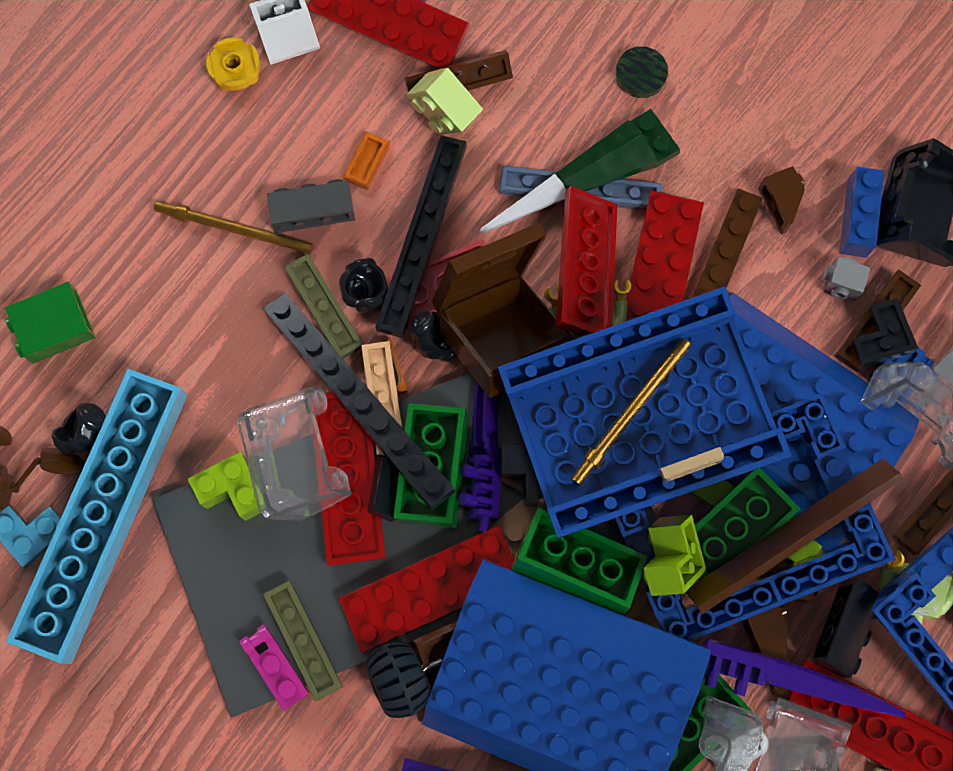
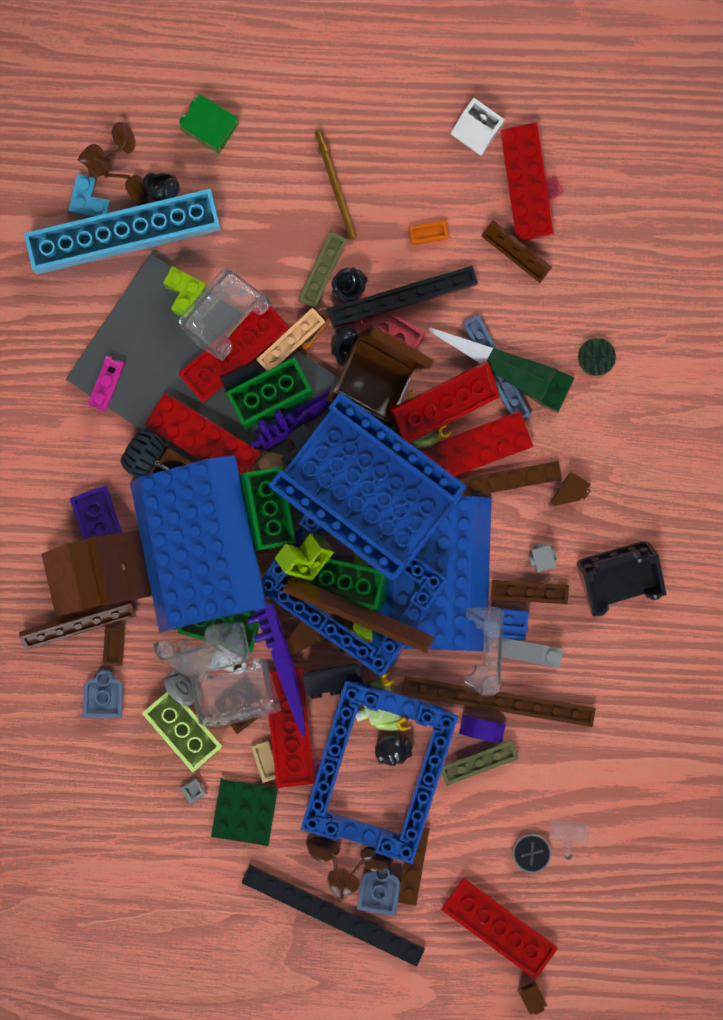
camera: 55 degrees right, 10 degrees up
(237, 78) = (434, 102): yellow plate -> none
(303, 640) = (130, 389): olive plate -> none
(310, 206) = (377, 220): dark grey brick -> none
(360, 402) = (278, 326): black plate -> none
(444, 102) = (488, 254): yellowish green brick -> none
(594, 457) = (327, 477): pearl gold bar -> none
(692, 464) = (351, 530): tan tile -> none
(861, 212) = (591, 542): blue brick -> none
(892, 335) = (518, 605): black plate -> none

